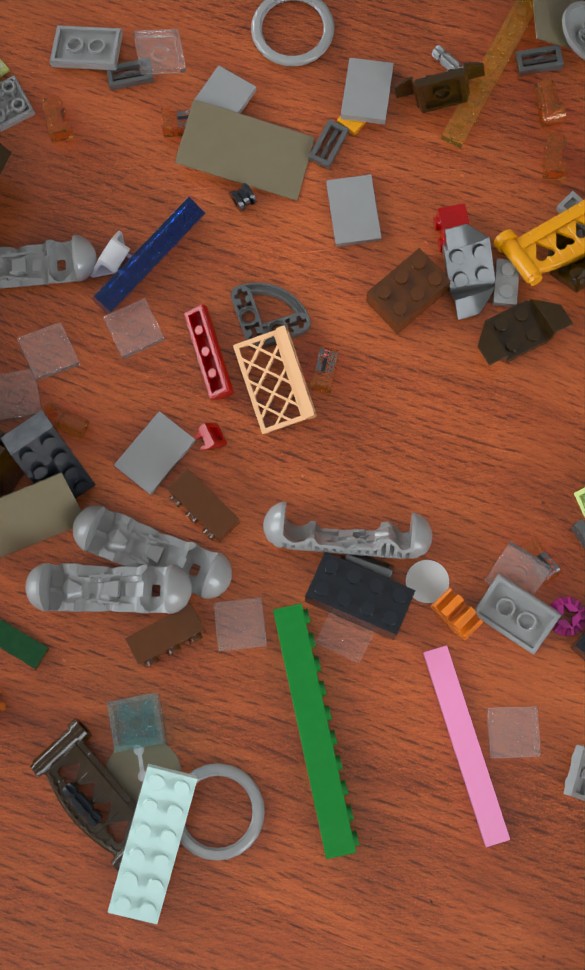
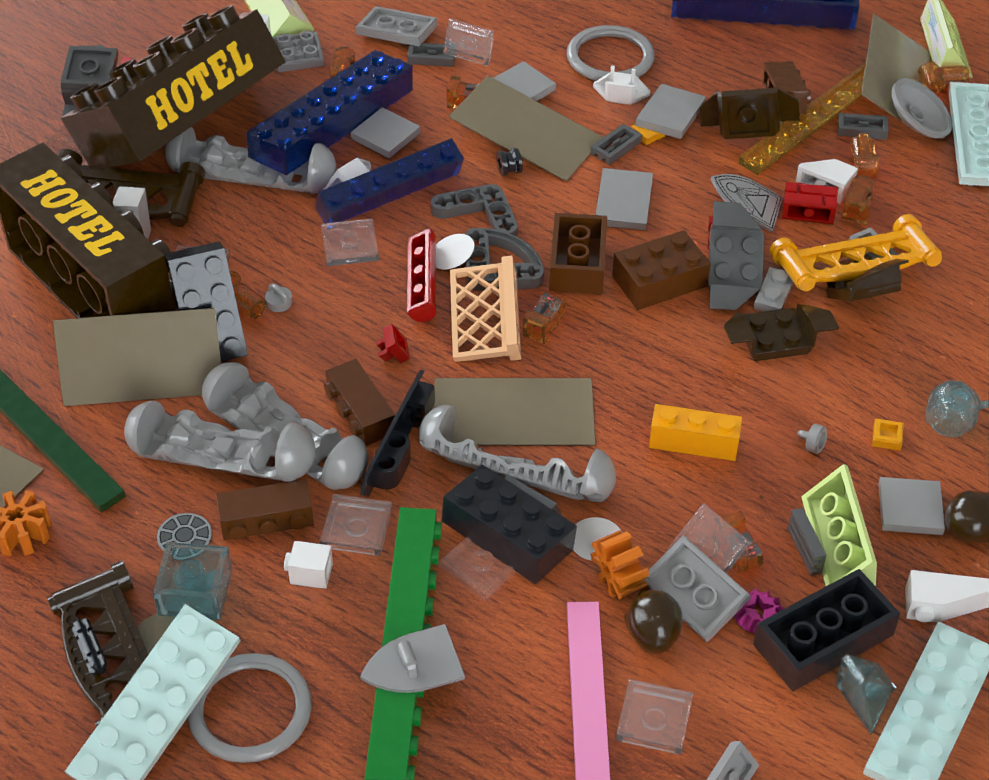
camera: 10 degrees right, 30 degrees down
(48, 351) = (250, 238): clear tile -> none
(67, 186) = (329, 111): none -> clear blue brick
(96, 411) = (278, 298): none -> light grey tile
(109, 670) = (184, 528): none -> sticker
(122, 190) = (385, 132): none -> light grey tile
(155, 453) = (325, 347): light grey tile -> none
(218, 676) = (309, 564): none -> white brick
(227, 316) = (453, 251): none -> white sticker
(232, 250) = (481, 202): none -> dark grey beam
(250, 502) = (395, 449): none -> black panel
(315, 73) = (621, 87): none -> white piece
(328, 471) = (520, 410): none -> dark tan piece
(331, 750) = (415, 662): none -> light grey shield
(335, 294) = (578, 253): none -> reddish brown brick
(462, 184) = (758, 200): none -> light grey shield
(463, 35) = (787, 78): none -> reddish brown brick
(480, 460) = (695, 432): none -> light orange brick
(494, 655) = (654, 620): none -> dark brown helmet
(514, 173) = (809, 203): none -> red brick
(524, 140) = (828, 173): none -> white slope
(575, 437) = (814, 438): none -> light grey tile

